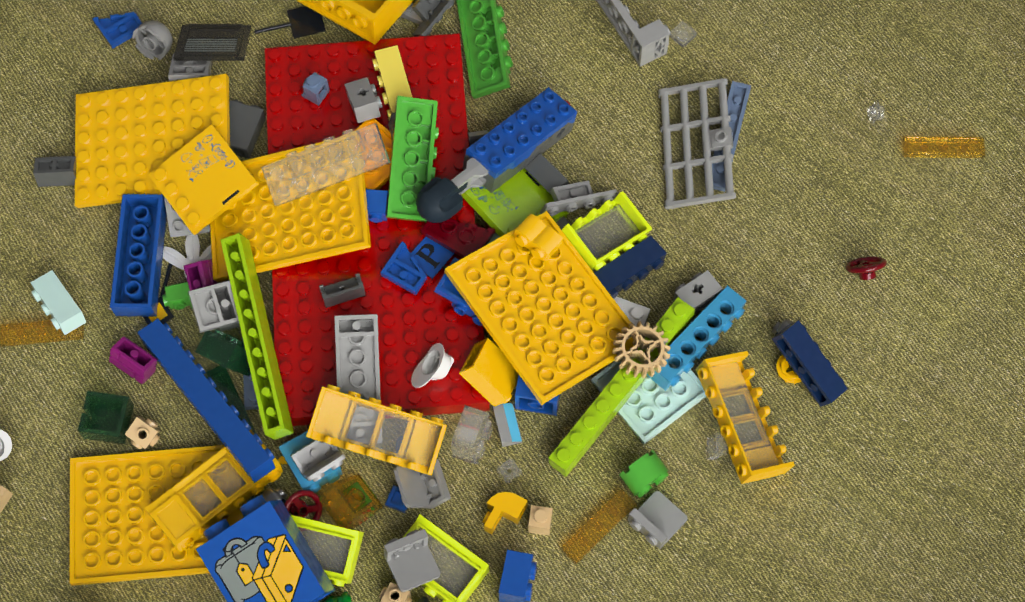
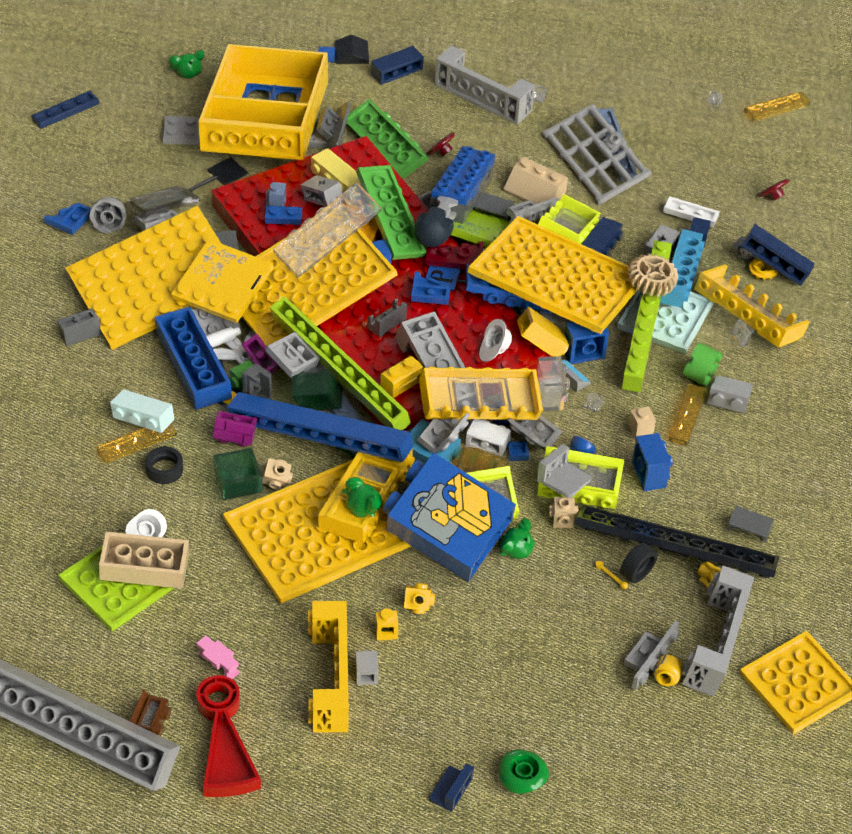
camera: 30 degrees left, 20 degrees down
(40, 362) = (167, 476): none -> black tyre
(178, 315) = (257, 382): none -> dark grey hinge
(180, 239) = (223, 336): none -> white cylinder
(187, 516) = (361, 498): none -> green hair
(312, 373) = (401, 376): none -> yellow brick
(314, 112) = (283, 215): none -> blue plate
(375, 473) = (488, 436): none -> white brick
(460, 526) = (582, 445): none -> blue brick
(504, 505) = (607, 424): yellow brick -> none
(537, 71) = (442, 146): none -> dark red piece
(537, 237) = (526, 228): yellow brick -> none
(608, 160) = (535, 182): none -> tan slope
(751, 290) = (701, 226): none -> dark blue brick
(757, 260) = (689, 210): none -> white plate

